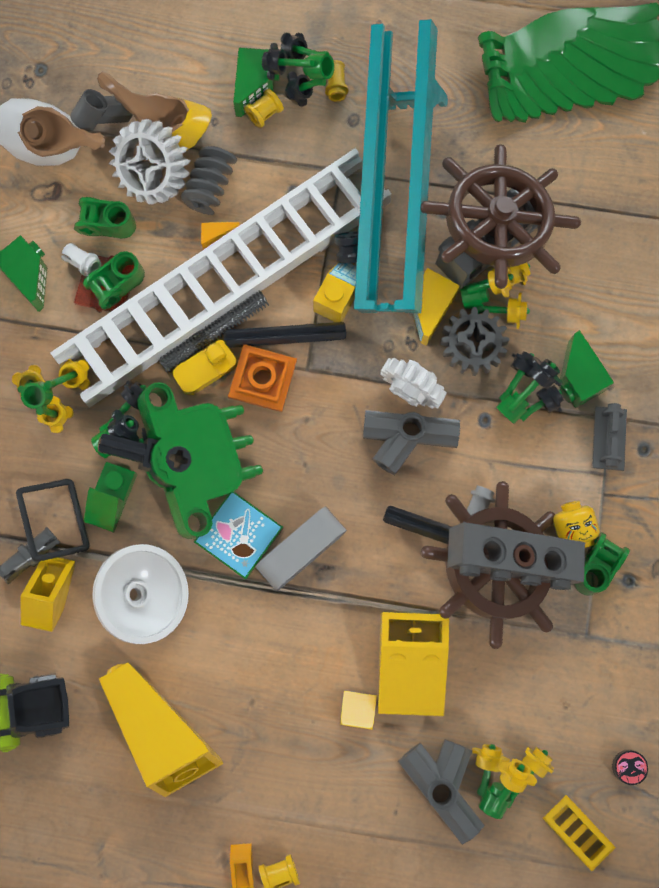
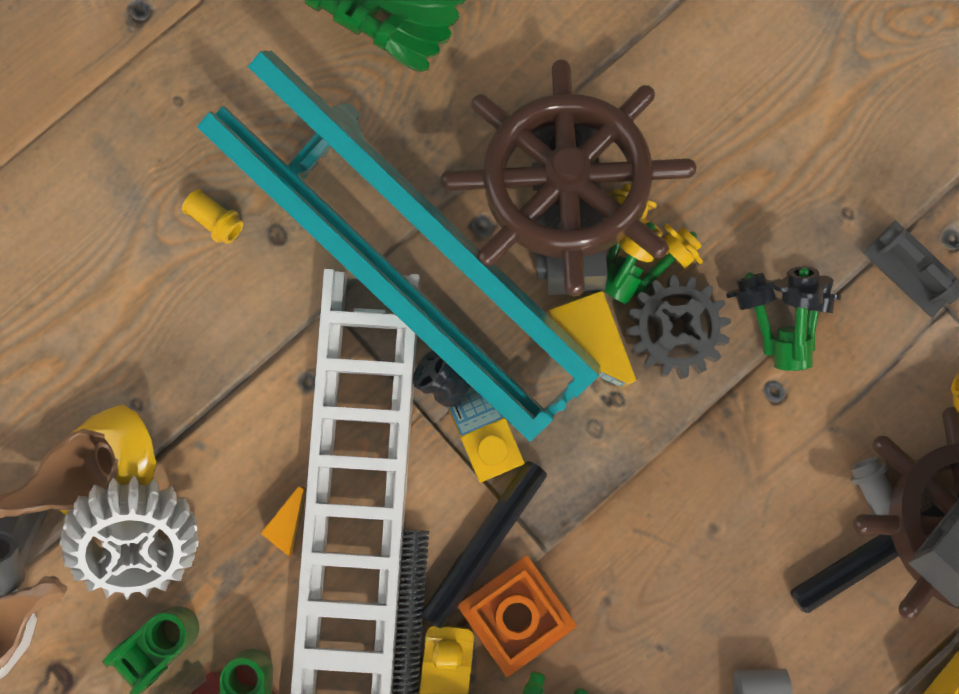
camera: 50 degrees left, 5 degrees up
(206, 177) = (209, 478): dark grey piece -> none
(250, 79) = (124, 313): green slope -> none
(264, 108) = (174, 333): yellow bush -> none
(294, 48) = (183, 232): plant -> none
(398, 444) = (734, 522): dark grey piece -> none
(413, 383) = (679, 447): white gear -> none
(582, 372) = (816, 234): green slope -> none

